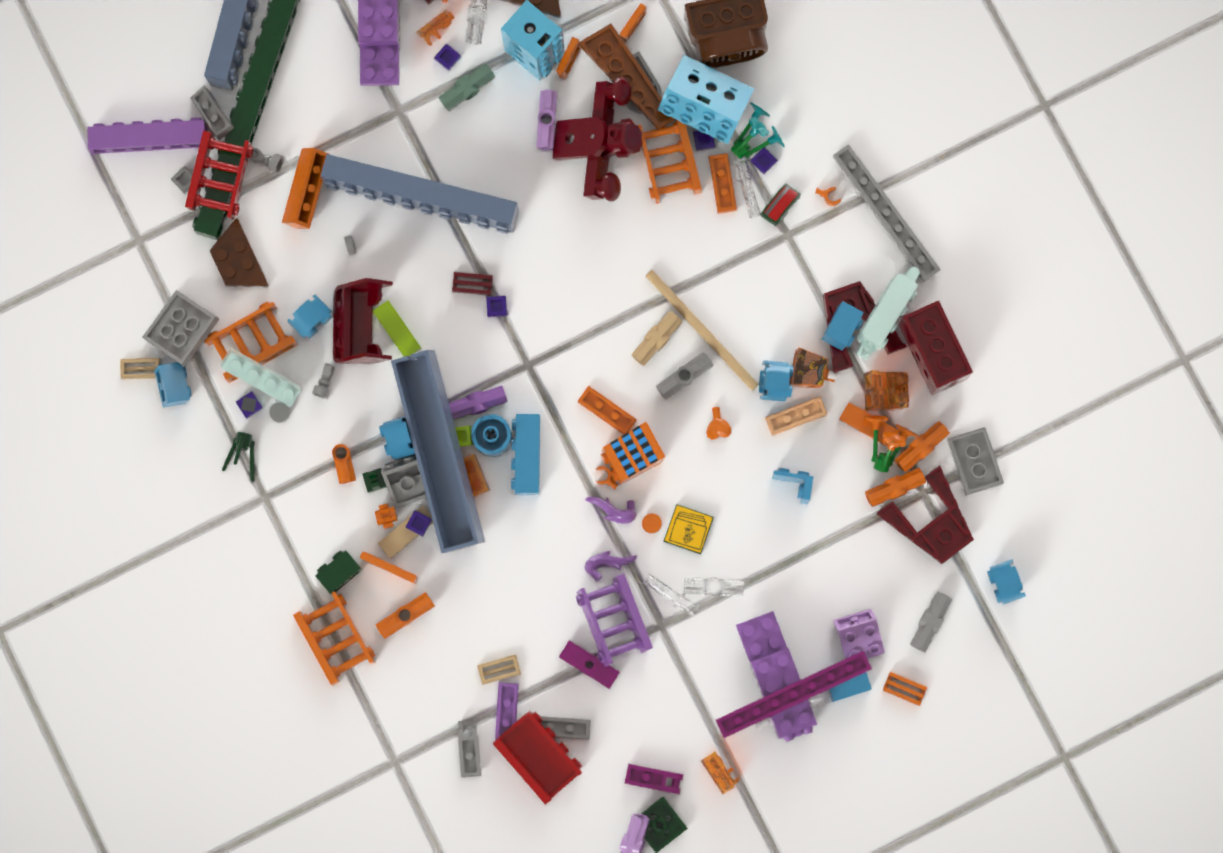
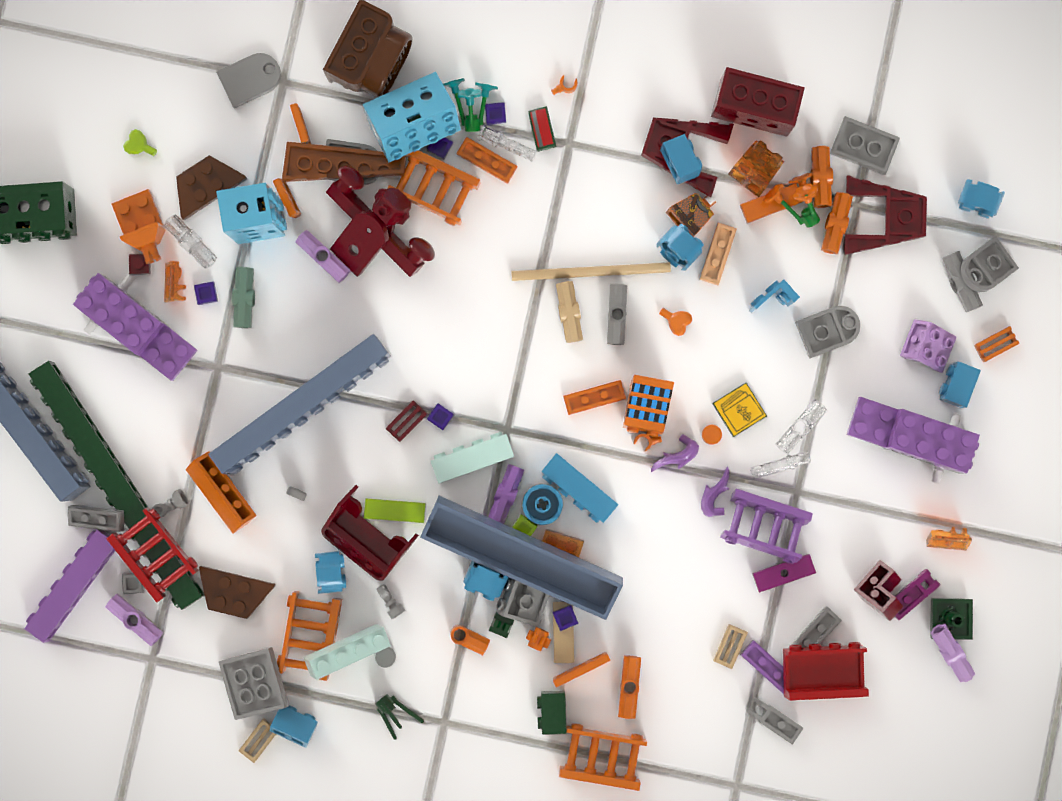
camera: 60 degrees left, 5 degrees up
(158, 190) = (124, 610): none -> lavender piece
(249, 405) = (359, 676): tile -> none
(483, 355) = (472, 458): none -> light aqua brick
(634, 745) = (877, 588): none -> dark red brick
(793, 694) = (945, 434): magenta plate -> none
(805, 548) = (827, 330): none -> light grey tile
(886, 212) = (615, 52): light grey plate -> none
(886, 312) = (697, 117): light aqua hinge -> none
(960, 631) = (989, 264): none -> light grey tile

